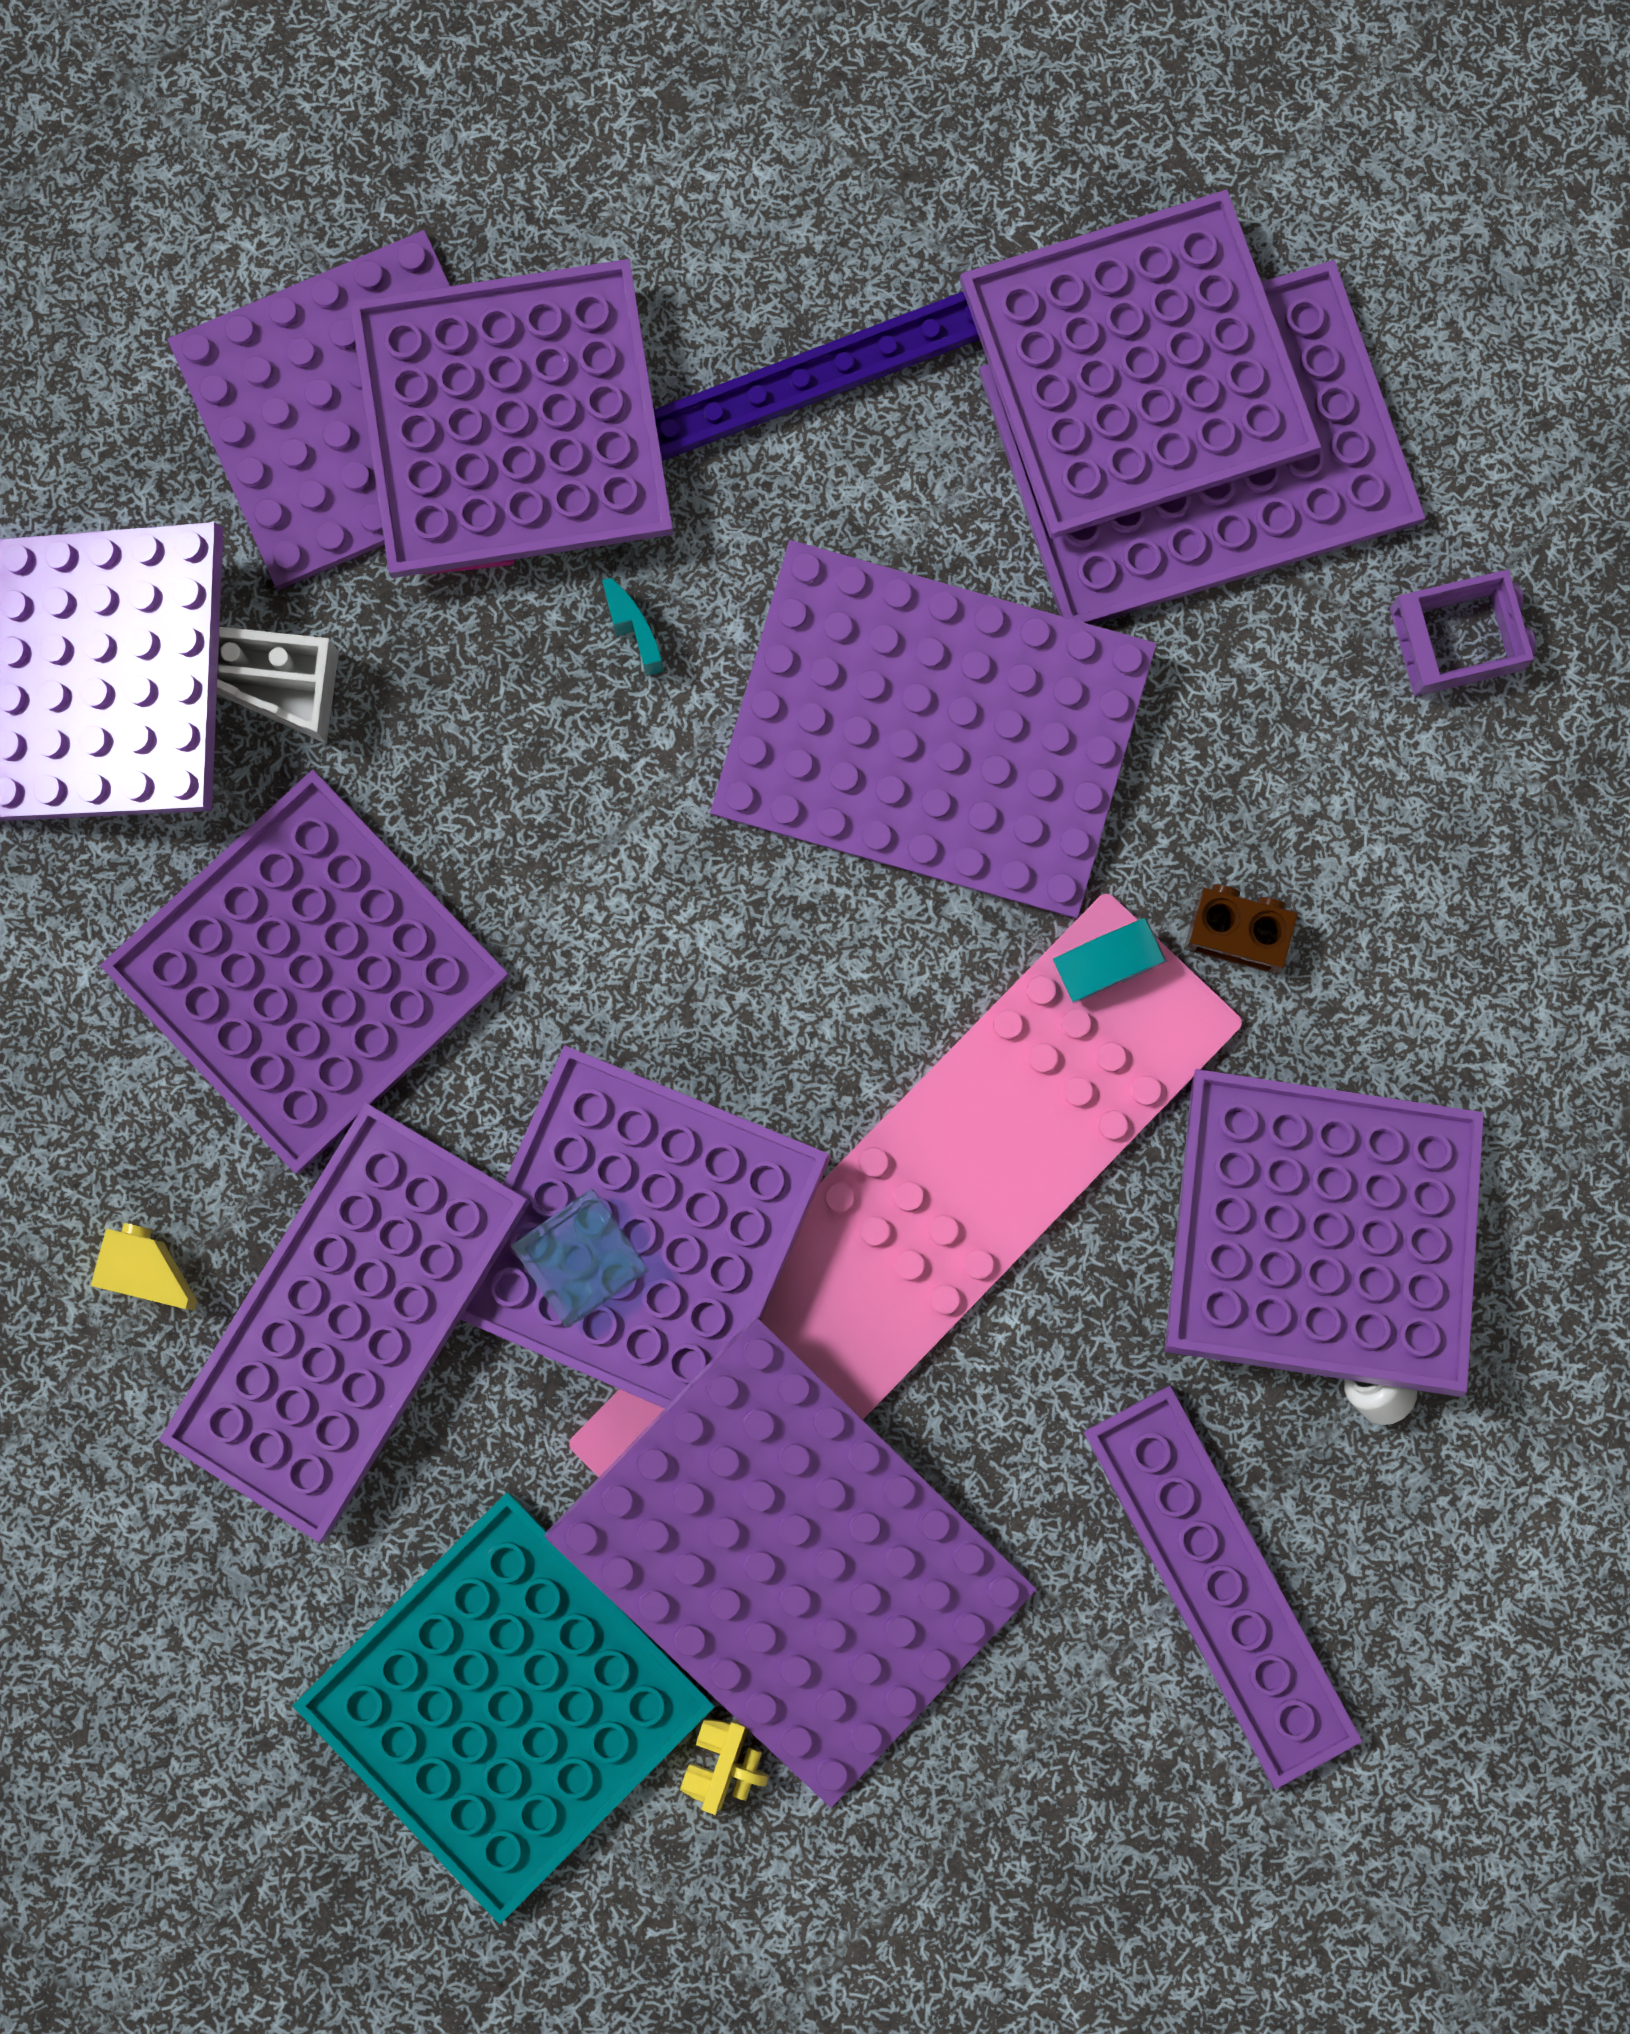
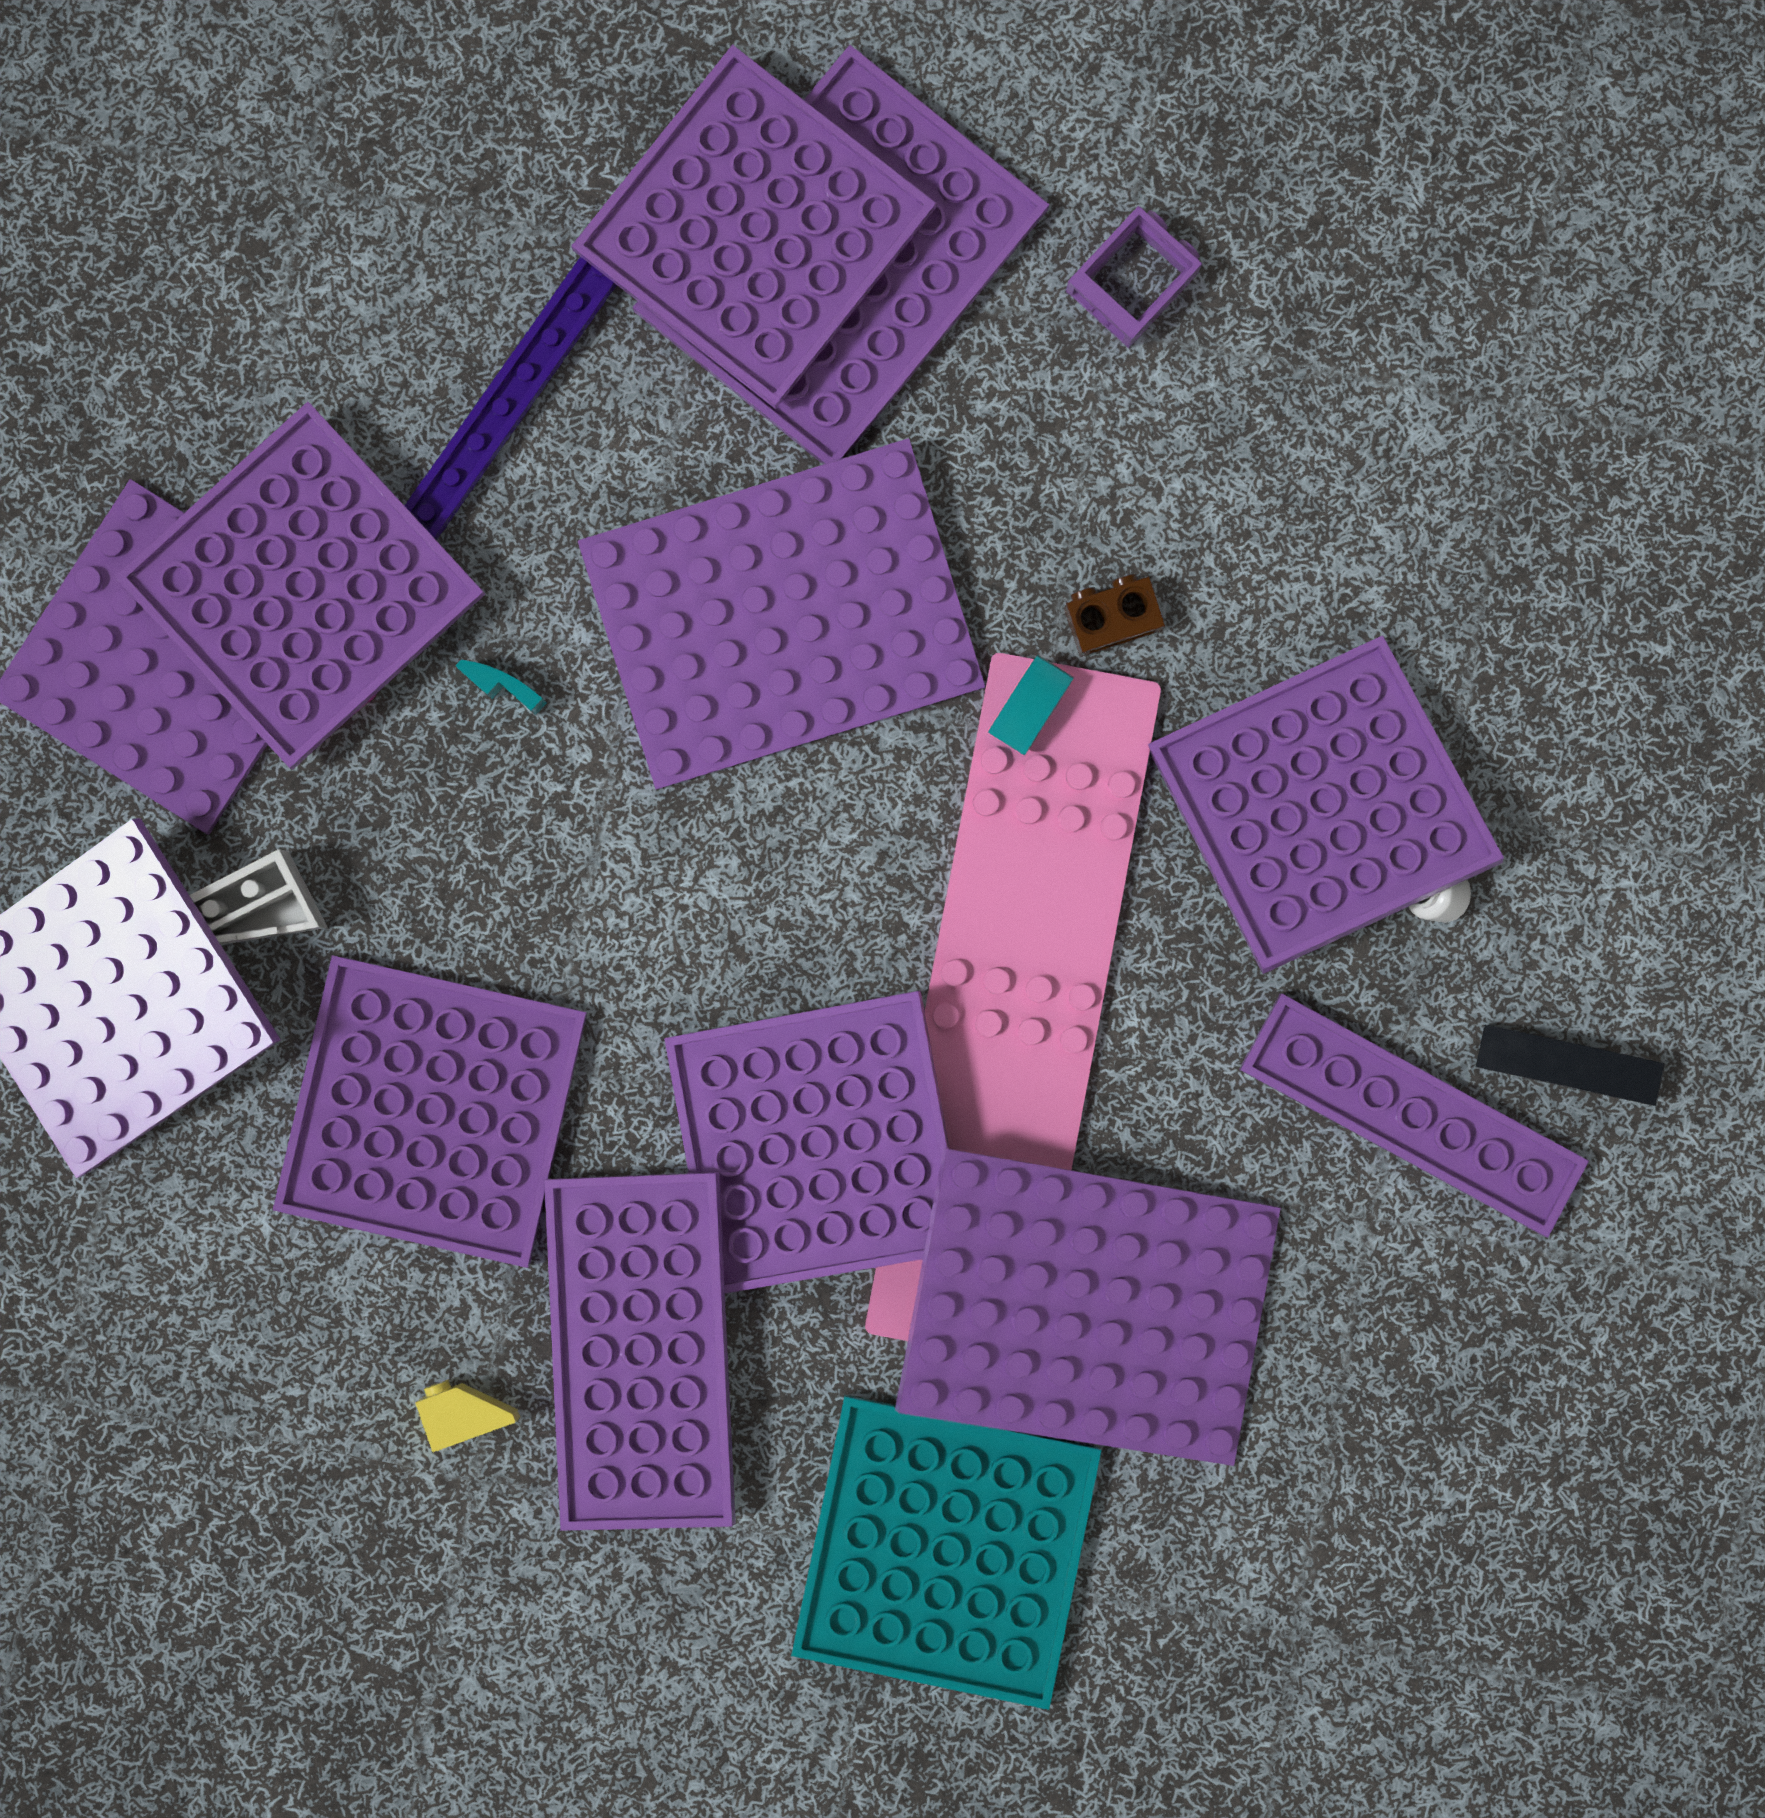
camera: 30 degrees left, 5 degrees up
(580, 1258) = (784, 1190): clear light blue plate -> none
(711, 1785) = (1136, 1508): light yellow hips -> none
(1404, 1638) = (1570, 1065): none -> black slope

